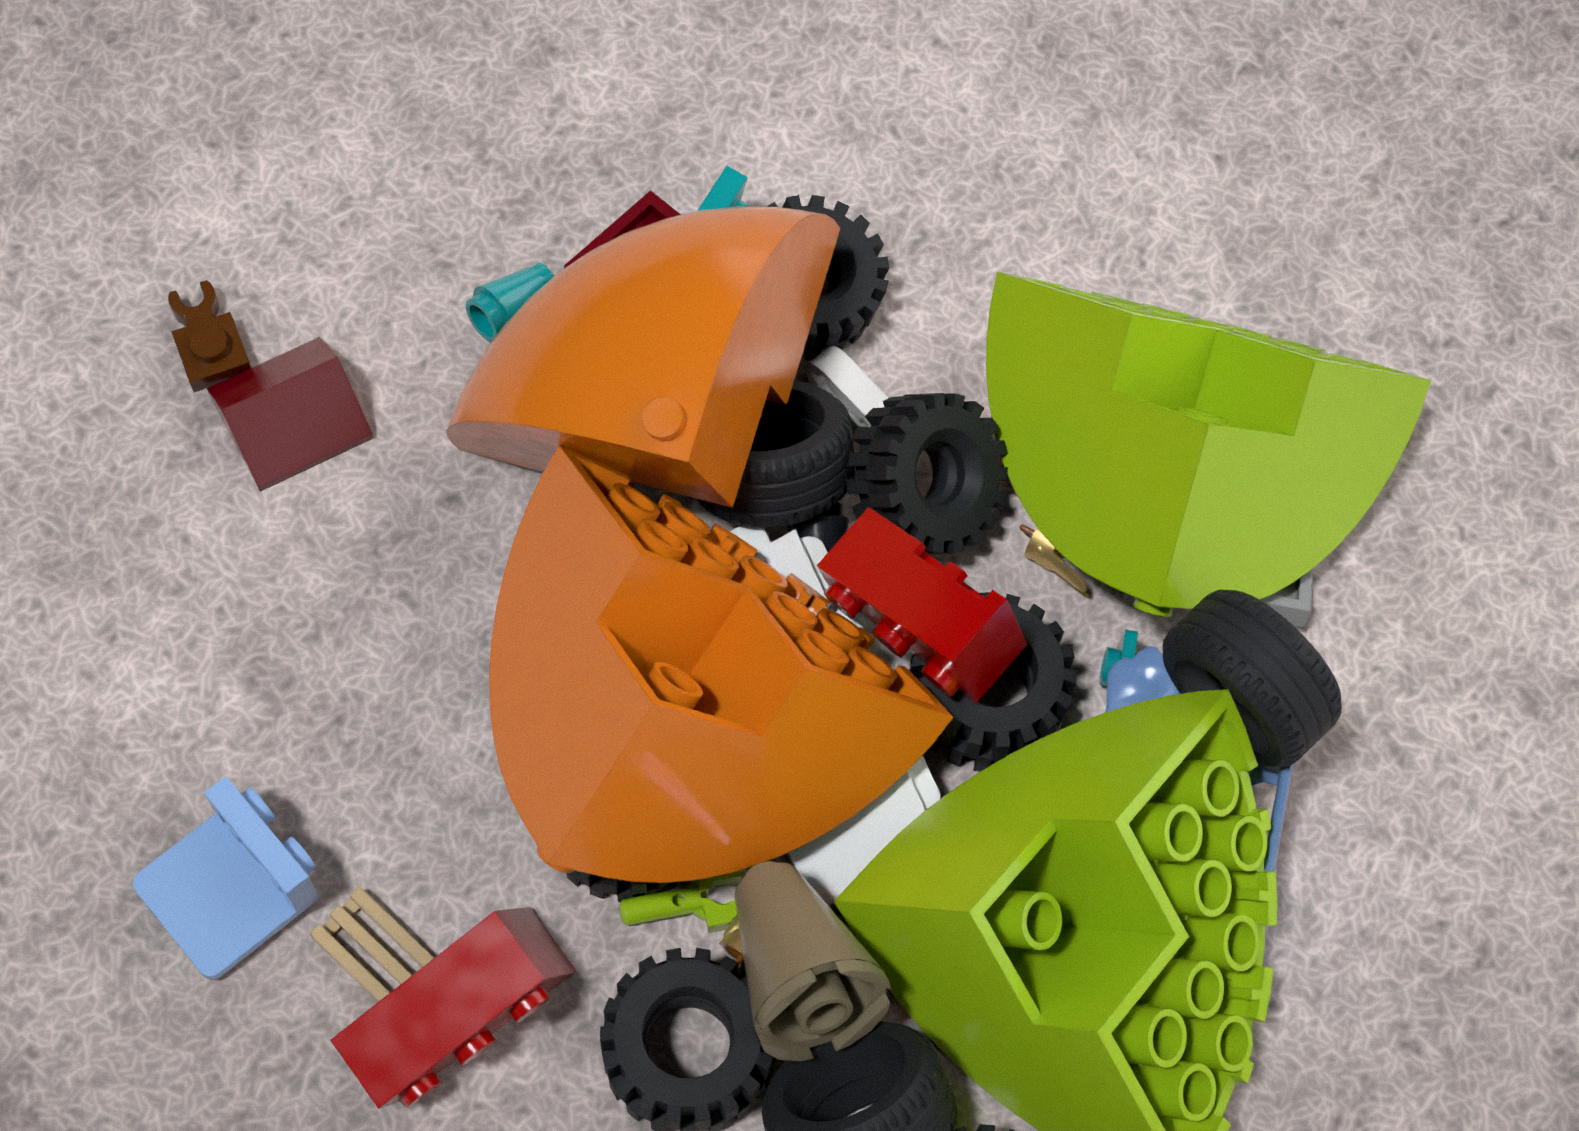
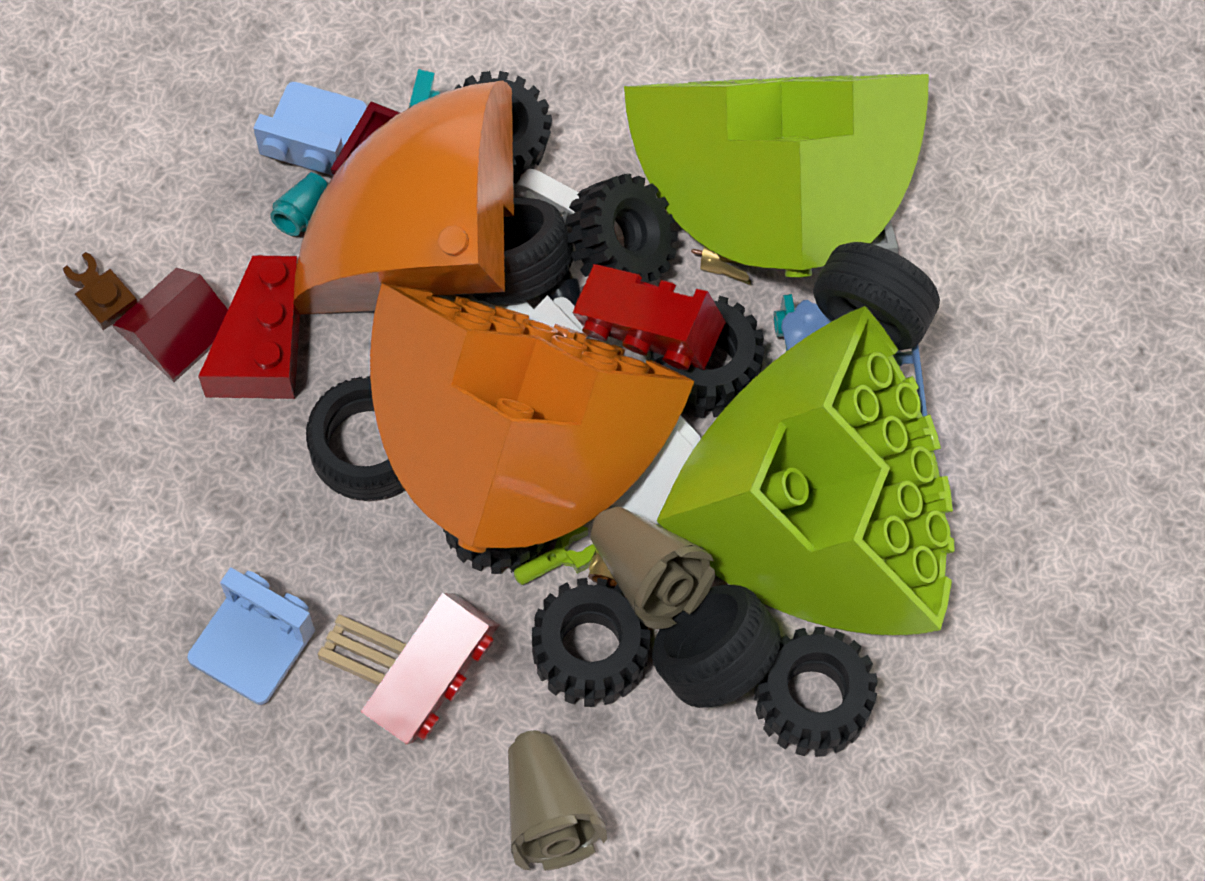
camera: 15 degrees left, 0 degrees up
(387, 466) = (258, 337): none -> red wedge
(422, 621) = (344, 478): none -> black tyre
(558, 199) = (308, 127): none -> light blue bracket

